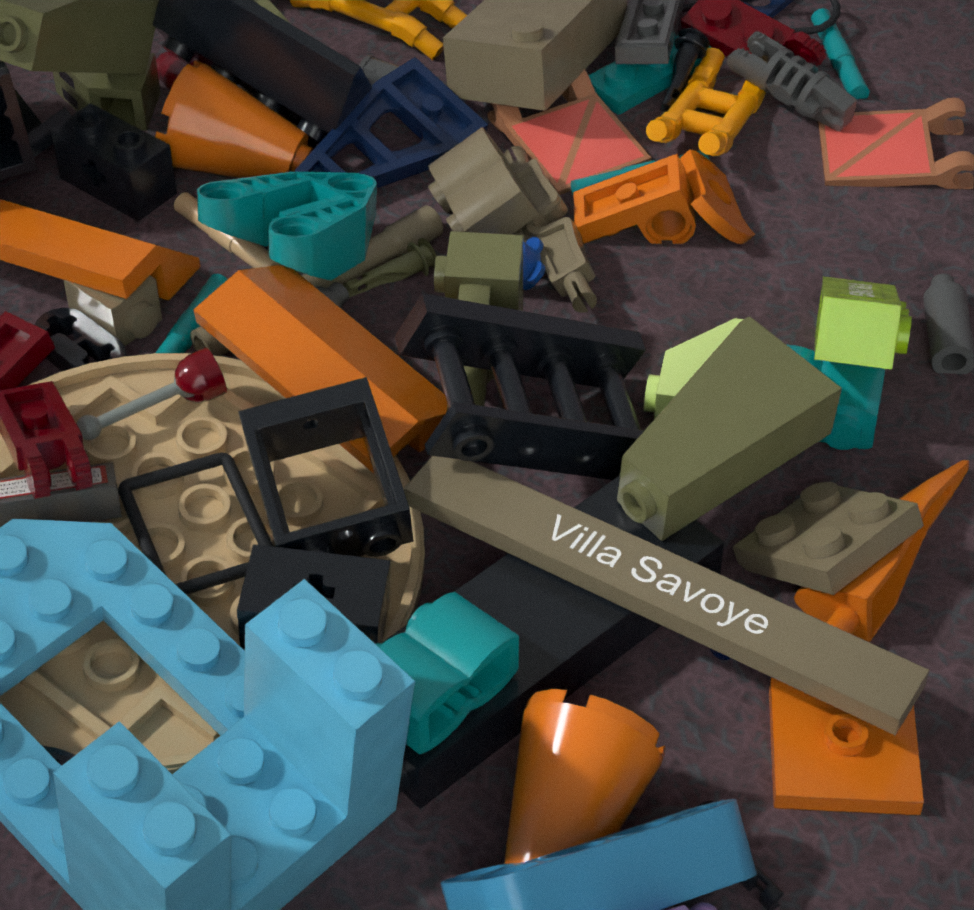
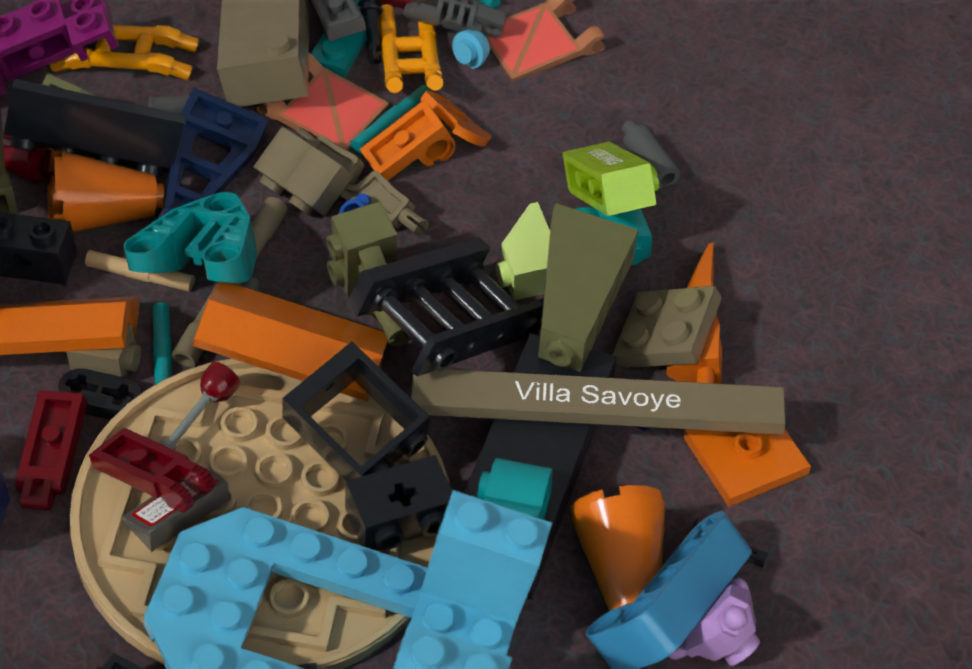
camera: 30 degrees left, 5 degrees up
(148, 549) = (299, 453): black piece -> none
(415, 260) = (285, 236): olive piece -> none
(791, 128) = (471, 48): none -> medium azure plate

